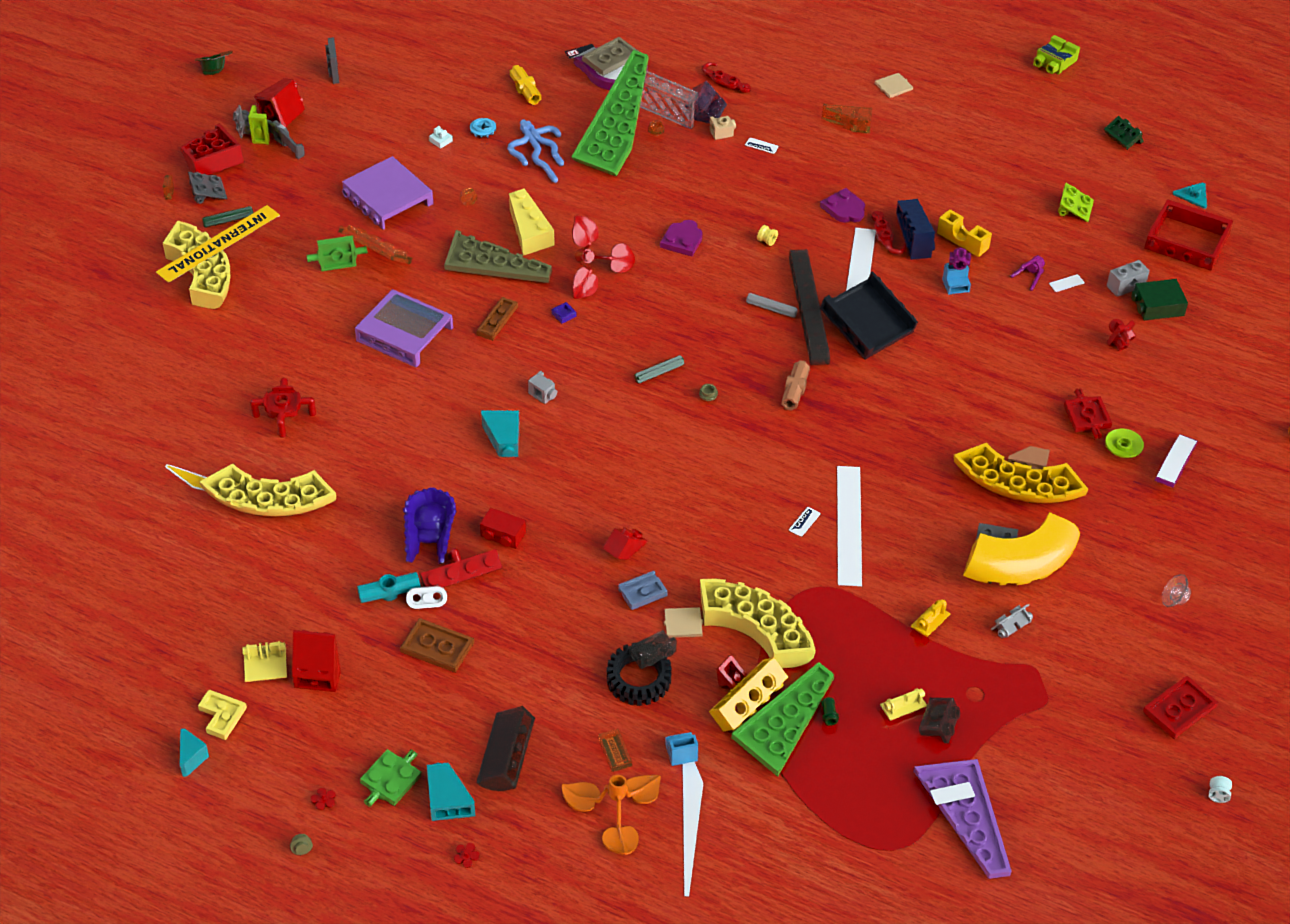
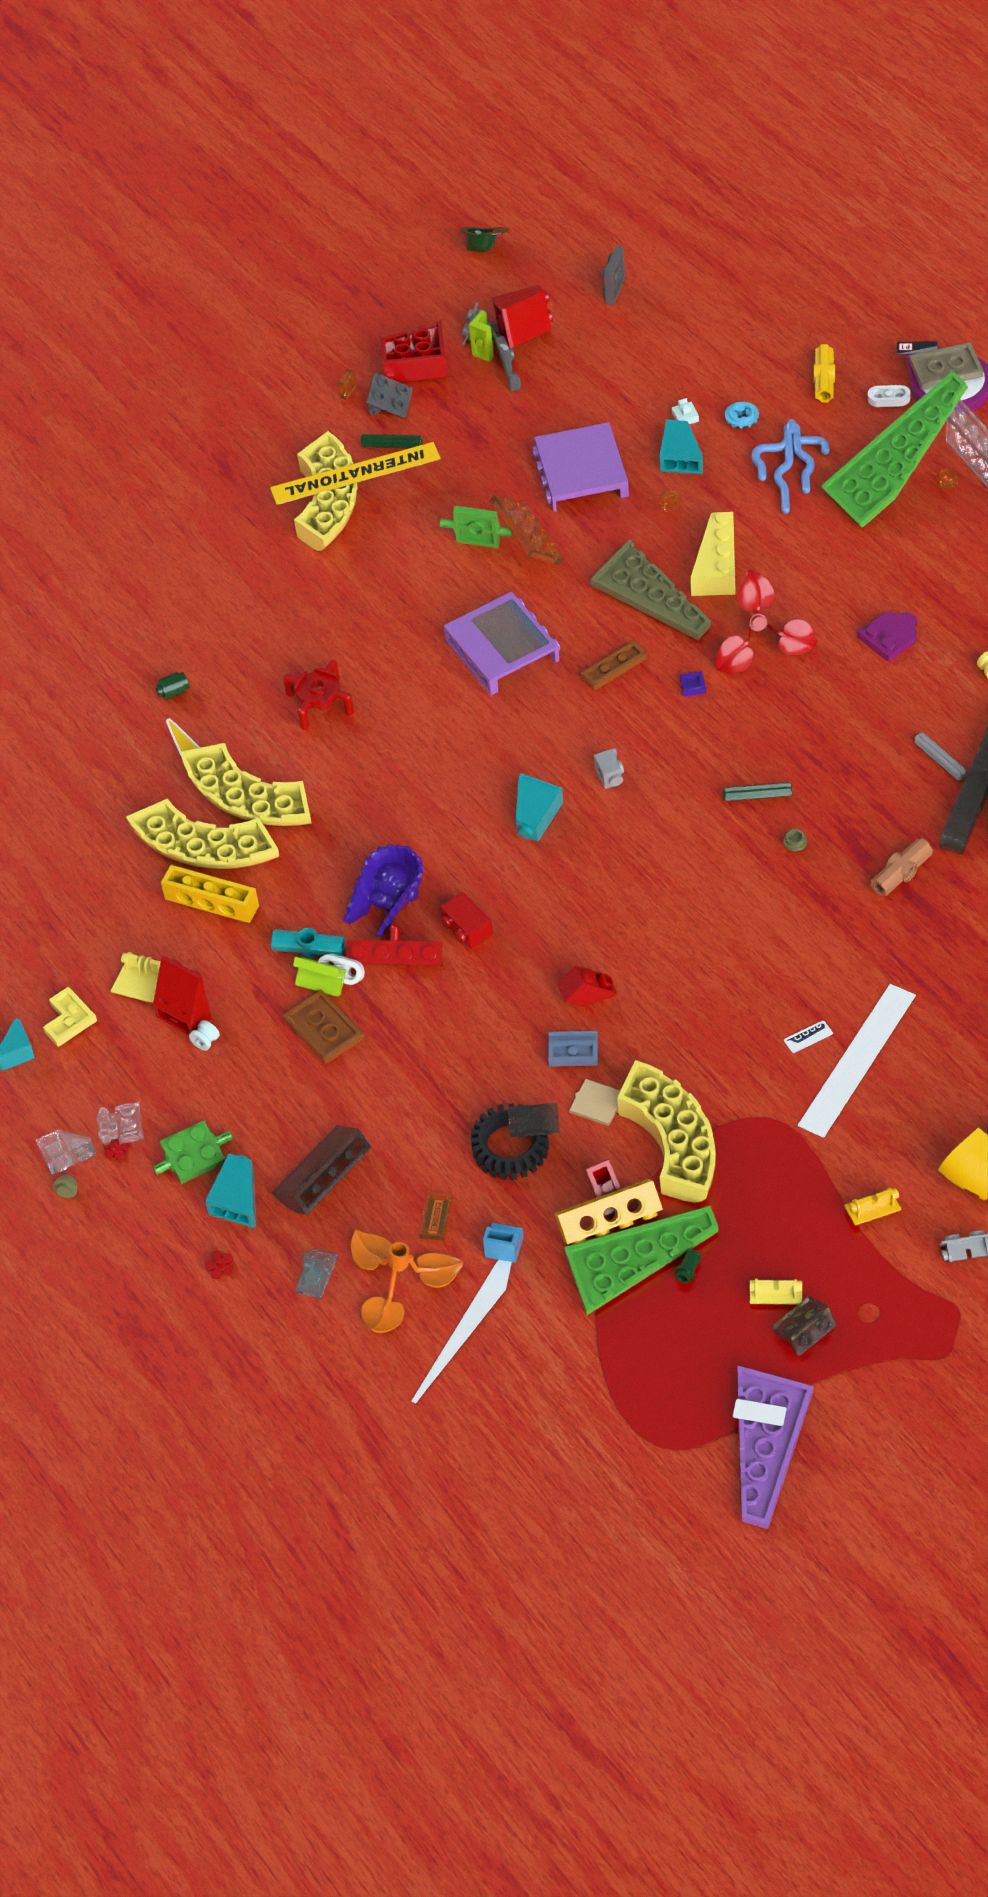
camera: 35 degrees right, 5 degrees up
(157, 438) = (172, 685): none -> dark green brick
(256, 543) = (202, 843): none -> light yellow brick
(281, 815) = (64, 1149): none -> clear slope
(287, 578) = (210, 894): none -> yellow brick
(324, 775) = (128, 1122): none -> clear plate
(346, 685) = (204, 1035): none -> light aqua wheel
(413, 608) = (319, 976): none -> lime panel
(454, 160) = (679, 449): none -> teal slope
(549, 829) = (316, 1272): none -> clear light blue slope
(580, 87) = (889, 396): none -> white plate

